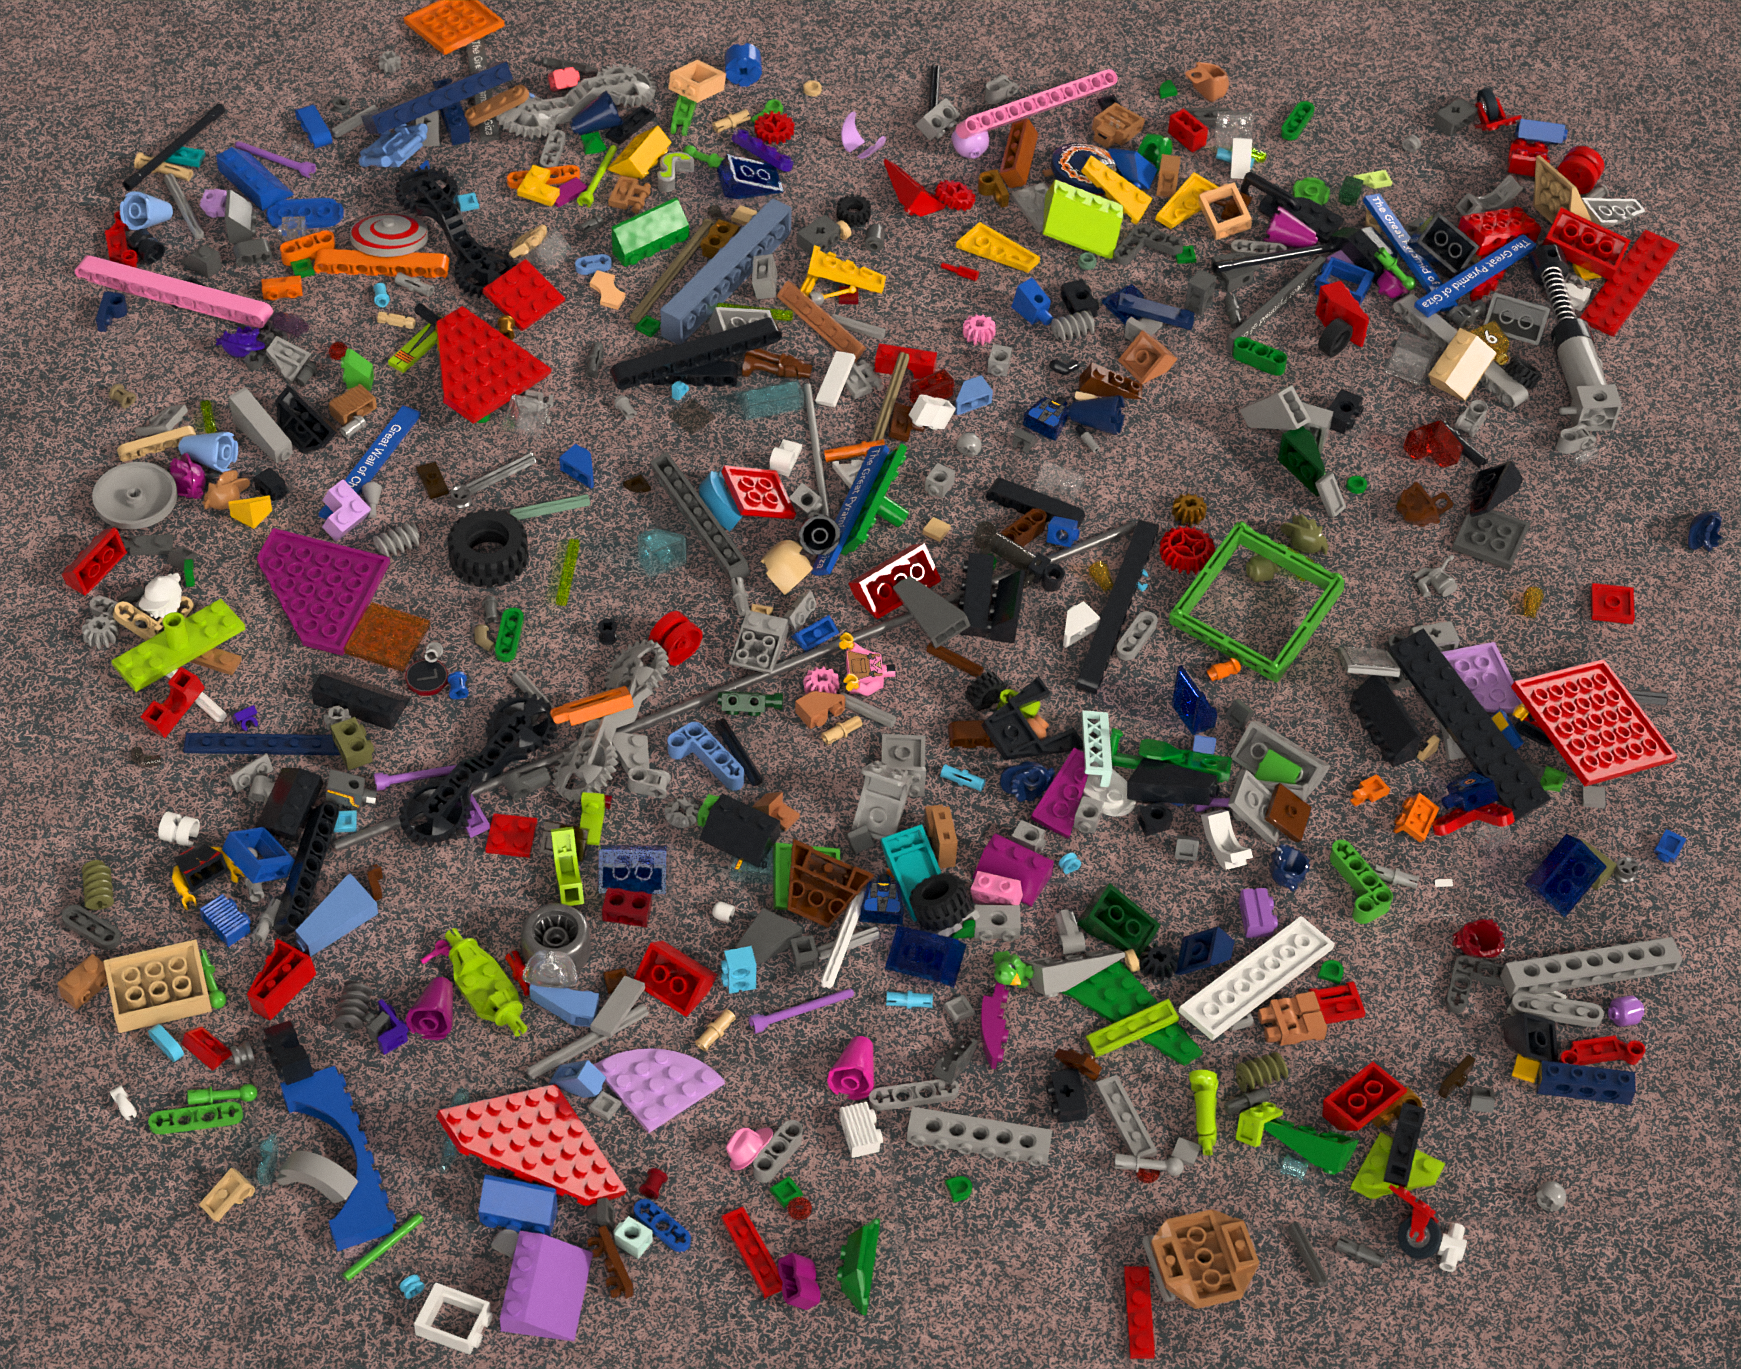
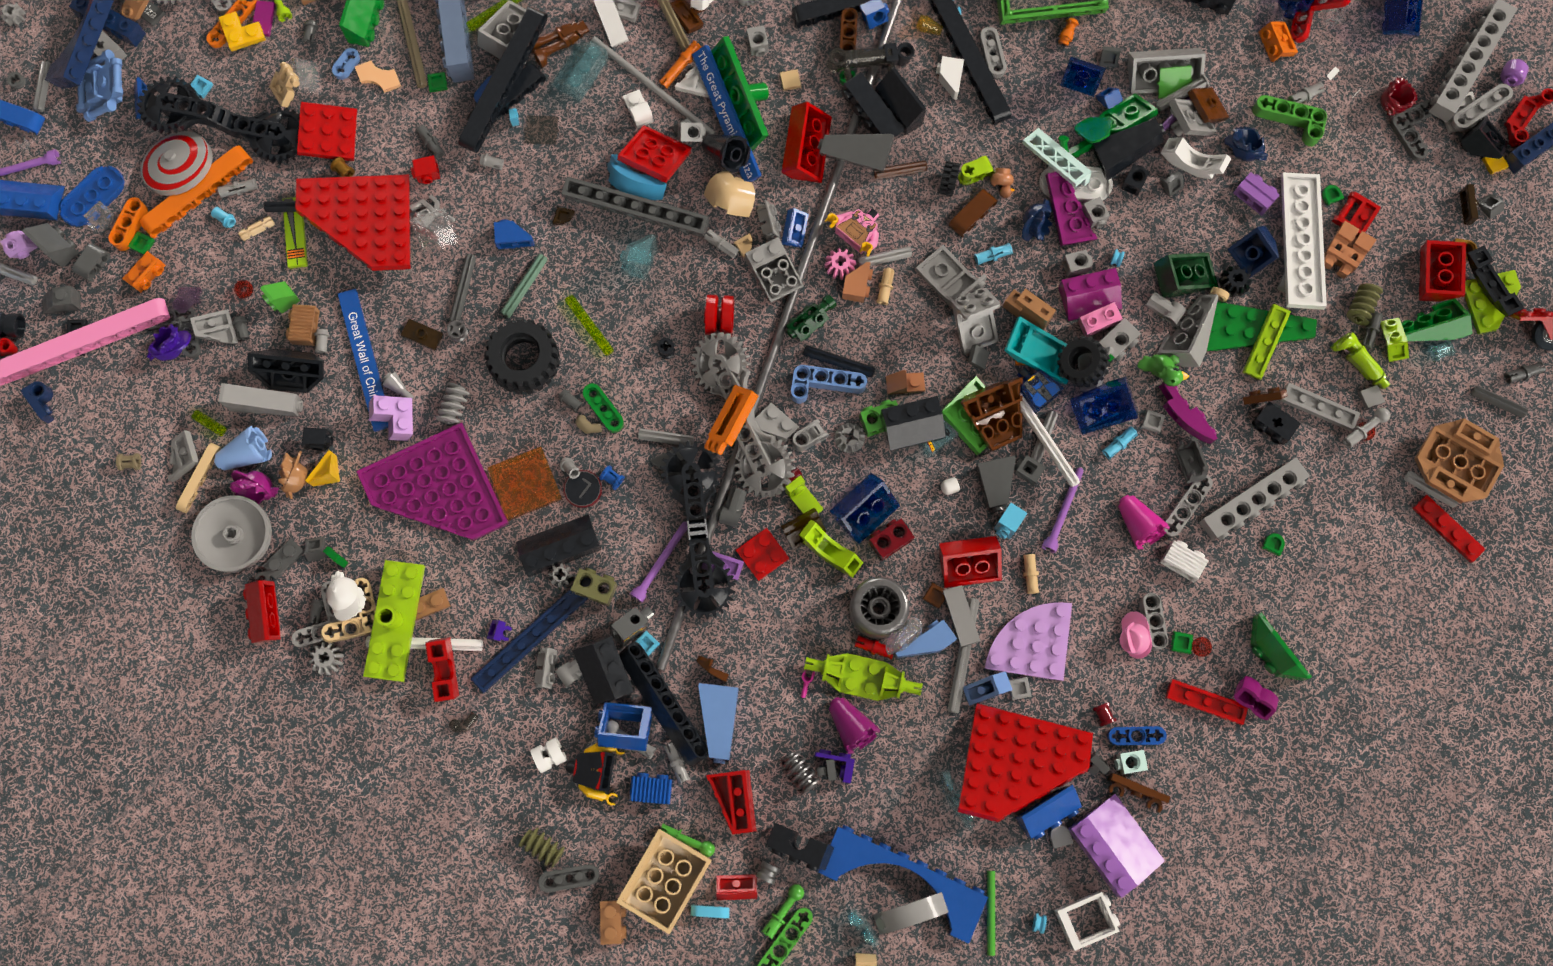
camera: 40 degrees left, 25 degrees up
(568, 374) = (425, 169): none -> red brick
(1015, 736) = (996, 194): black wing -> none
(1371, 788) = (1235, 43): orange plate -> none

